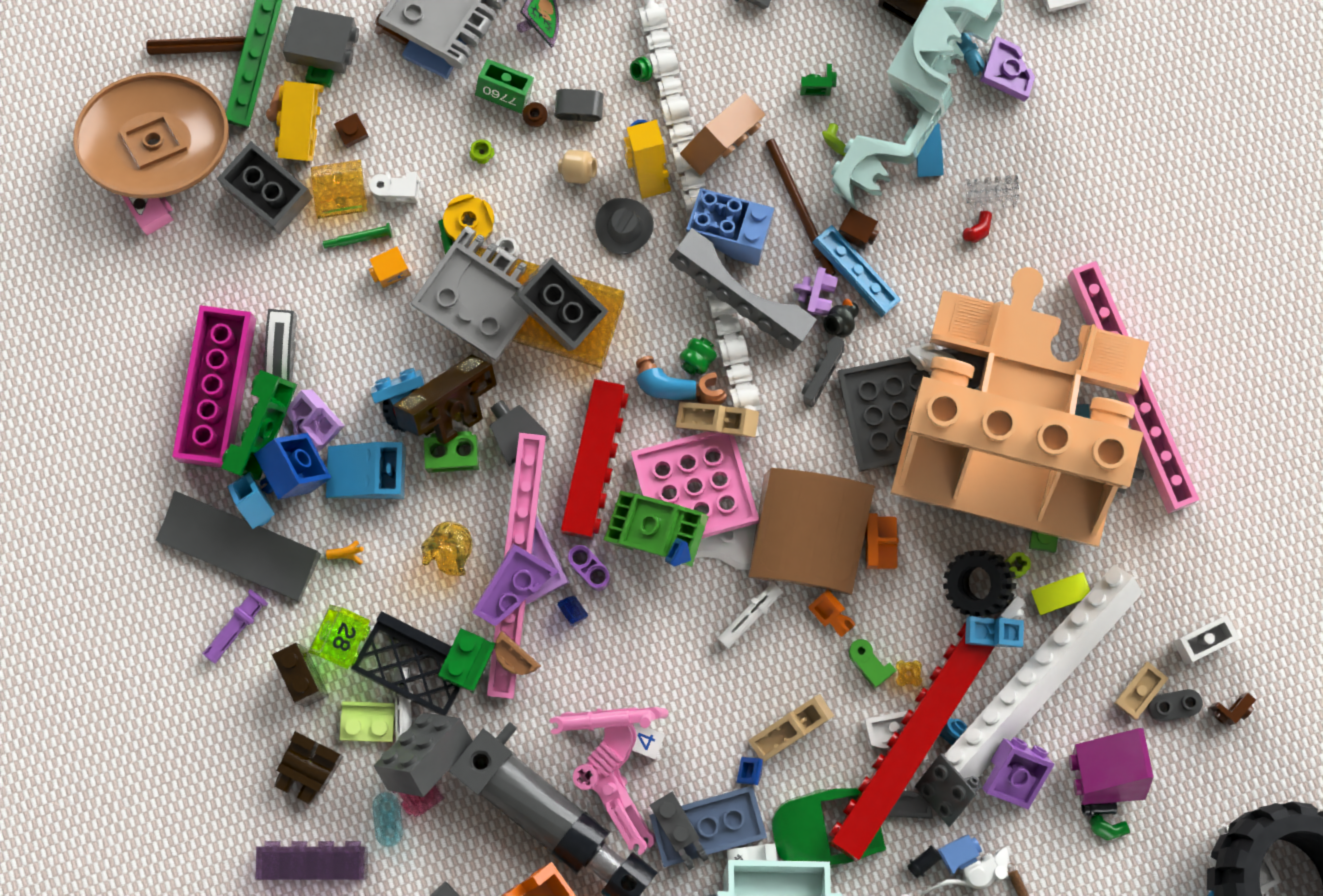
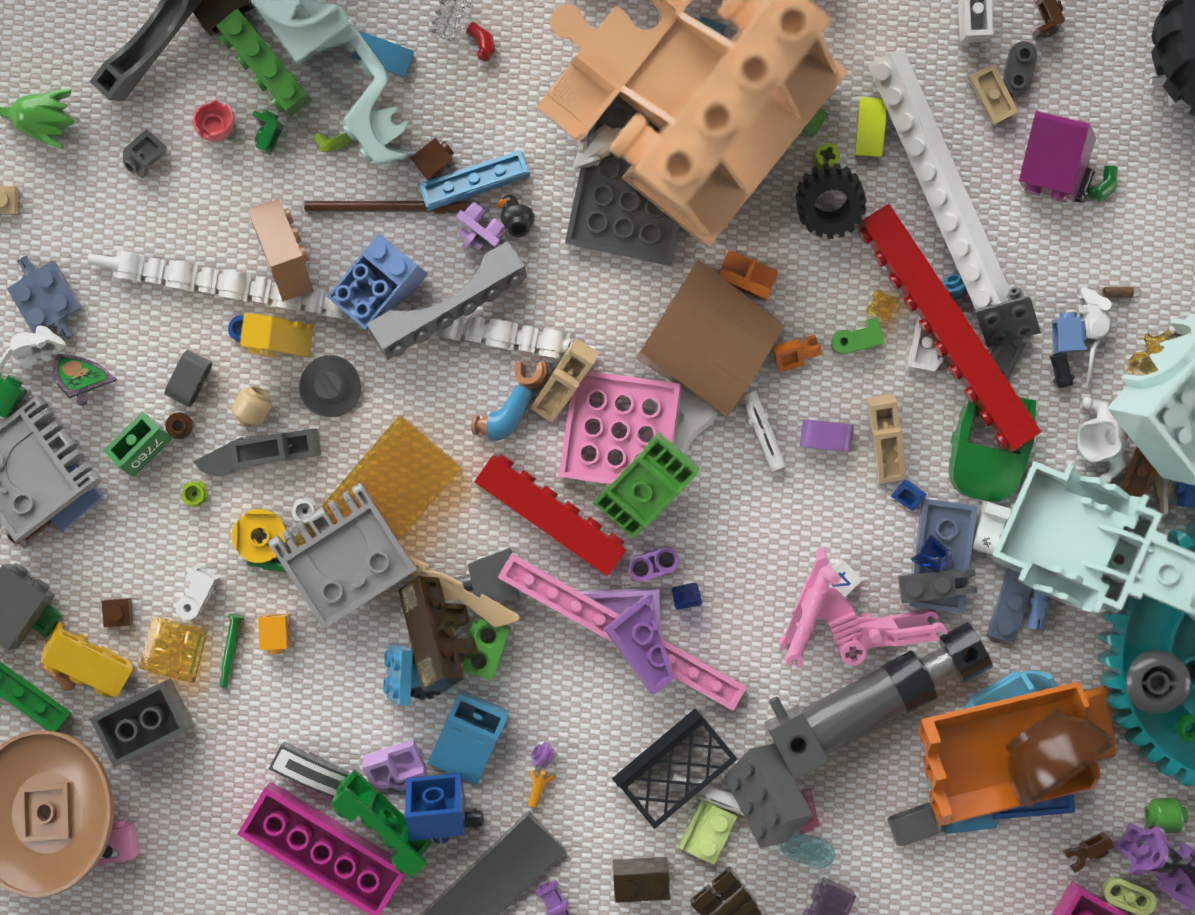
camera: 65 degrees left, 10 degrees up
(251, 501) = (452, 860): dark azure piece -> none
(294, 507) = (474, 819): none -> black pin
(340, 636) = (620, 828): clear neon green brick -> none
(376, 543) = (542, 755): none -> medium lavender plate
(450, 547) = (577, 686): clear yellow hair -> none
(466, 660) = (694, 717): green plate -> none
(491, 401) = (453, 589): none -> tan sword
(513, 657) = (710, 672): medium nougat plate -> none
(521, 163) = (217, 462): none -> dark grey tile
(550, 202) = (275, 448): none -> dark grey slope
(560, 304) = (389, 485): dark grey brick -> none
(641, 69) = (177, 301): green plate -> none
(678, 553) = (686, 478): blue slope -> none
(697, 356) = (492, 371): green piece -> none
(705, 813) = (931, 554): none -> clear blue slope
(770, 673) = (826, 435): none -> medium lavender beam
(807, 36) = (214, 121): none -> coral hair
(824, 370) = (558, 255): dark grey hinge -> none
(875, 56) = (259, 57): none -> bright green brick
(994, 632) = (883, 208): dark azure slope -> none
(1013, 610) = (869, 181): white plate -> none
(1018, 772) = (1020, 245): medium lavender plate -> none

